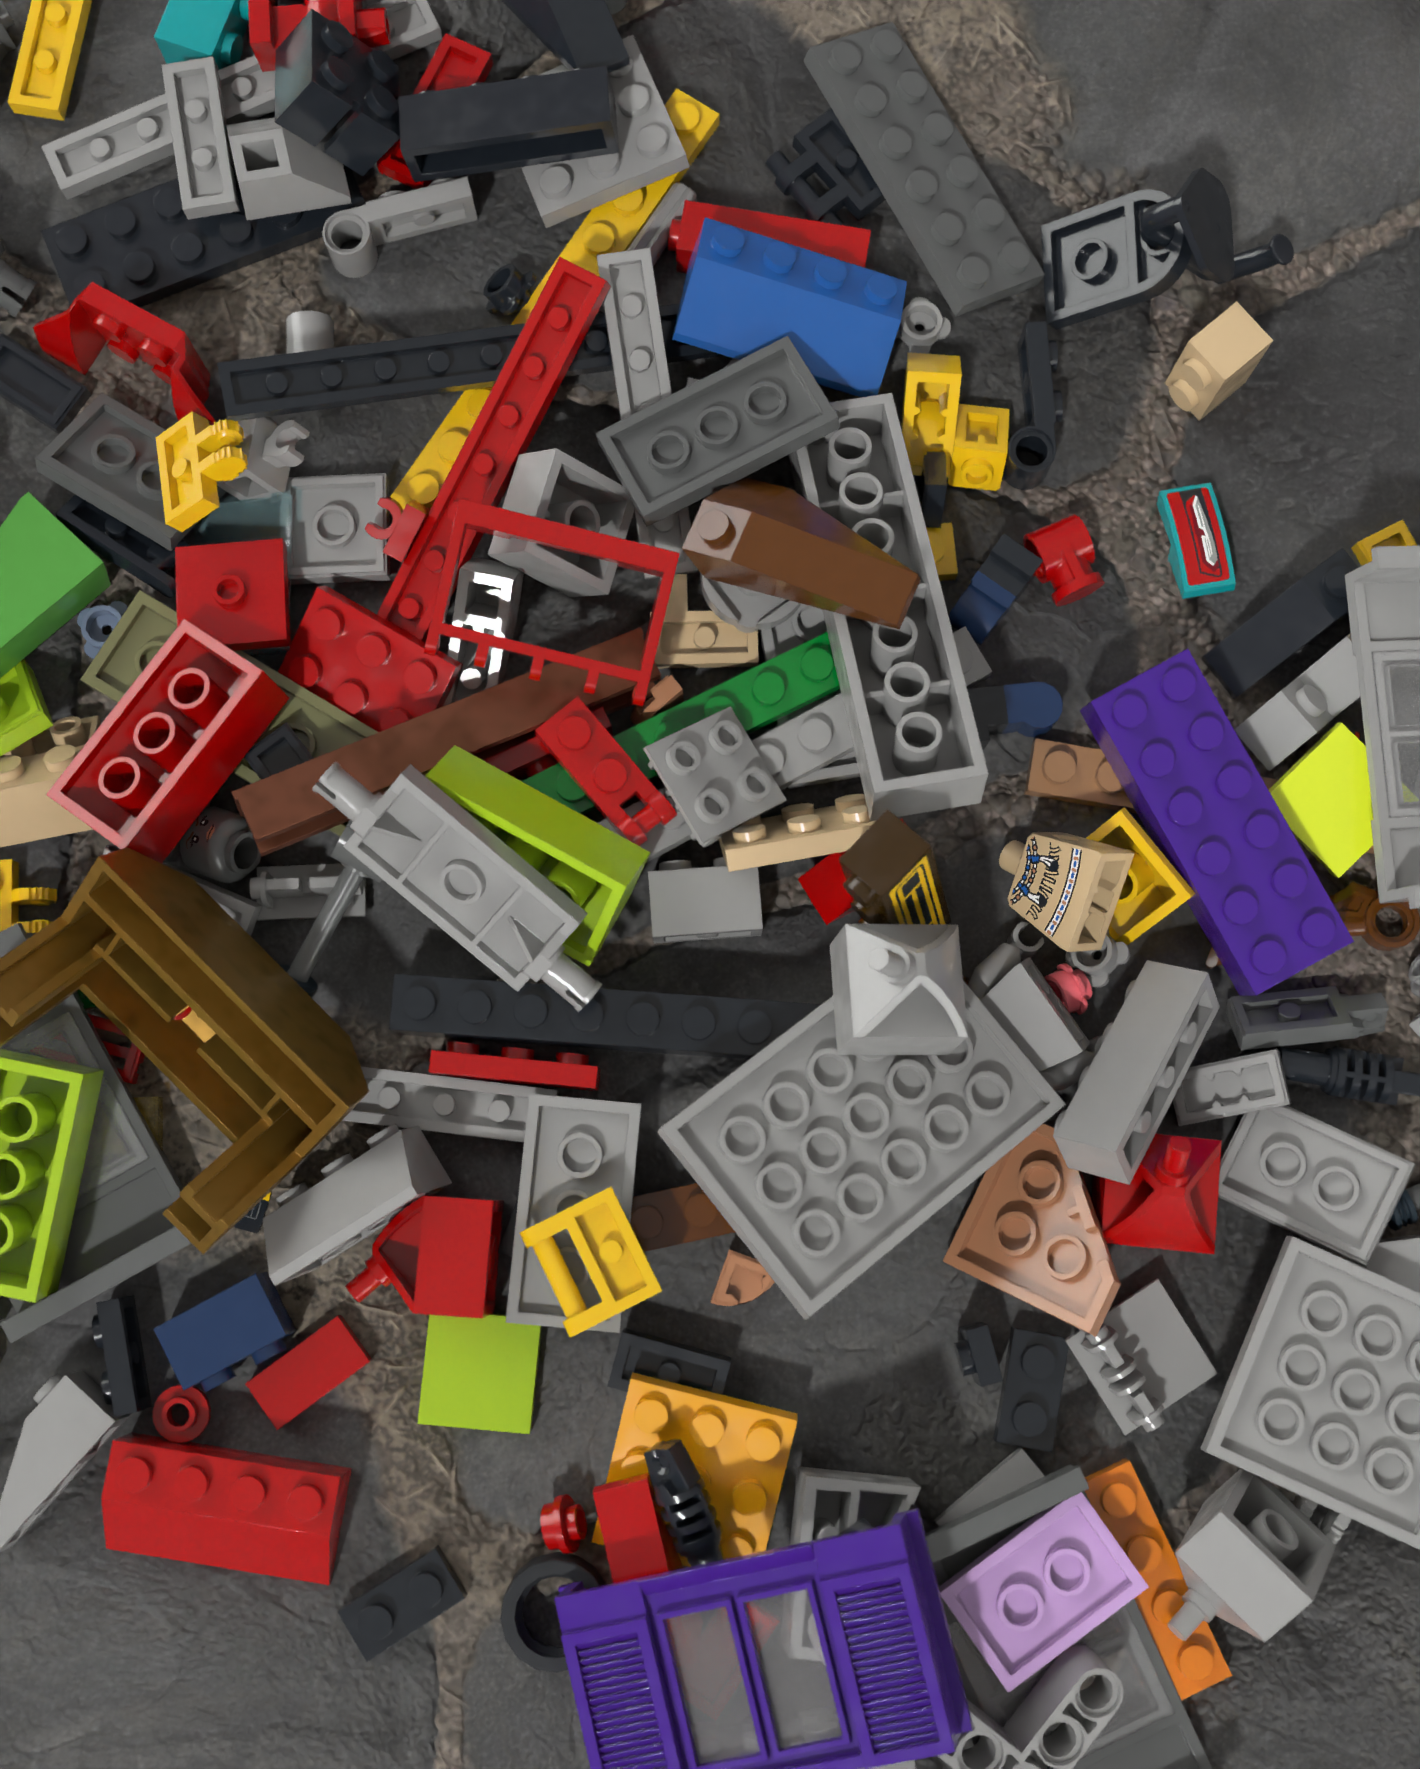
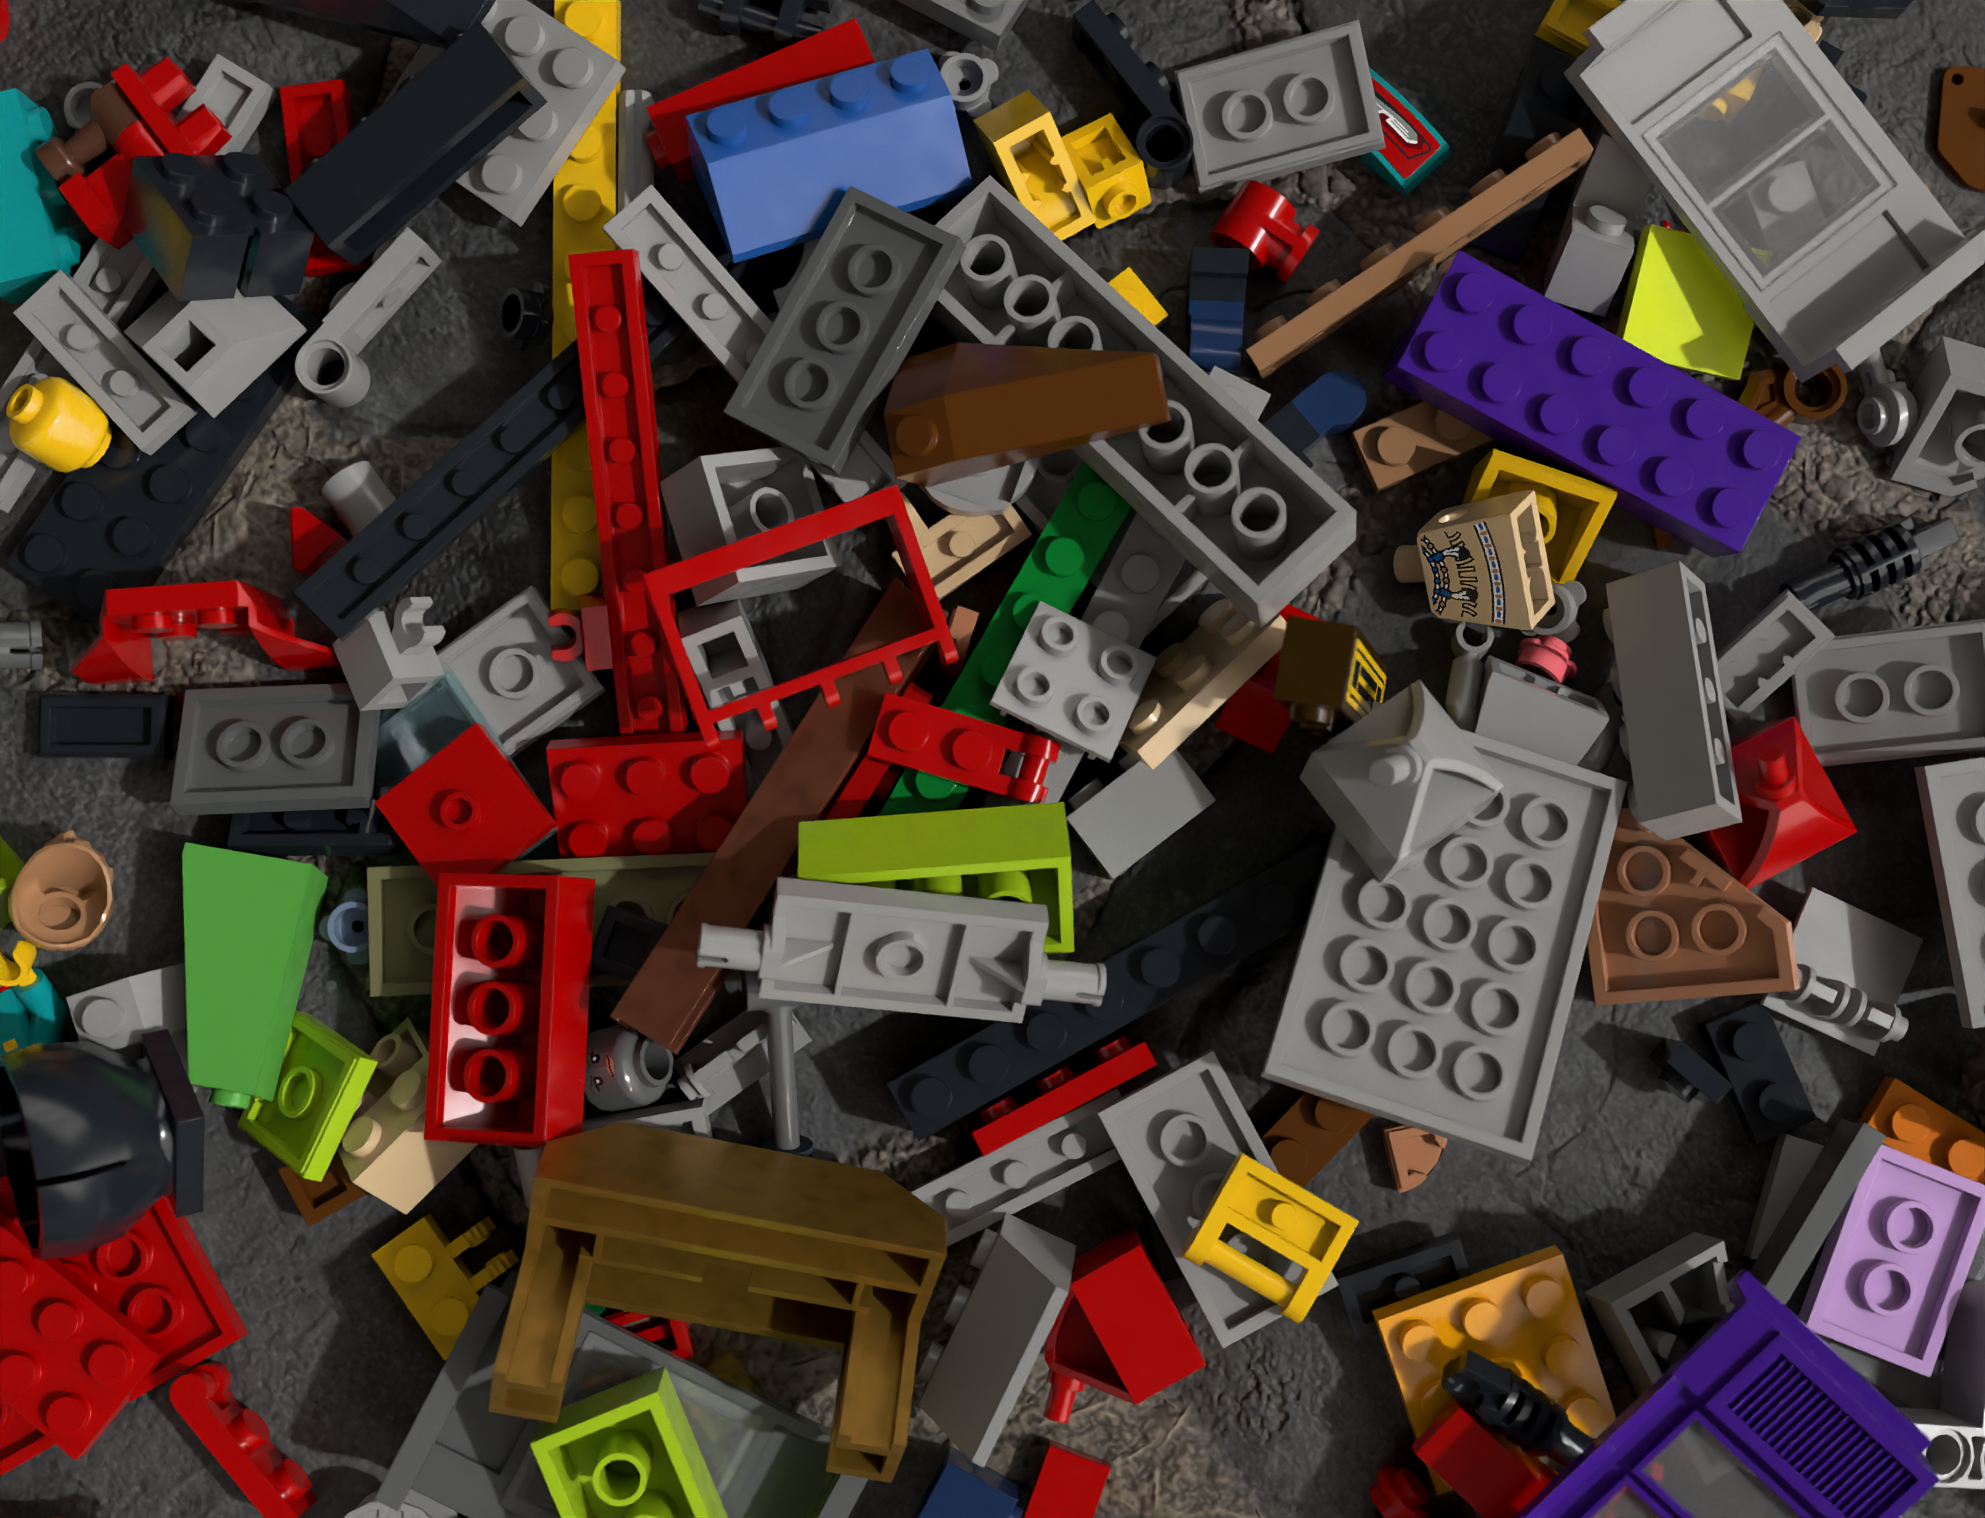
camera: 25 degrees left, 5 degrees up
(139, 158) = (58, 424): none -> yellow head
(190, 463) = (339, 716): yellow hinge -> none
(256, 341) = (312, 541): none -> red slope
(479, 1374) = (1227, 1412): lime tile -> none
(933, 488) = (1090, 242): black tile -> none
(1131, 481) = (1280, 108): none -> light grey tile
(1136, 639) = (1436, 238): none -> medium nougat plate
(1304, 1017) = (1790, 539): dark grey hinge -> none

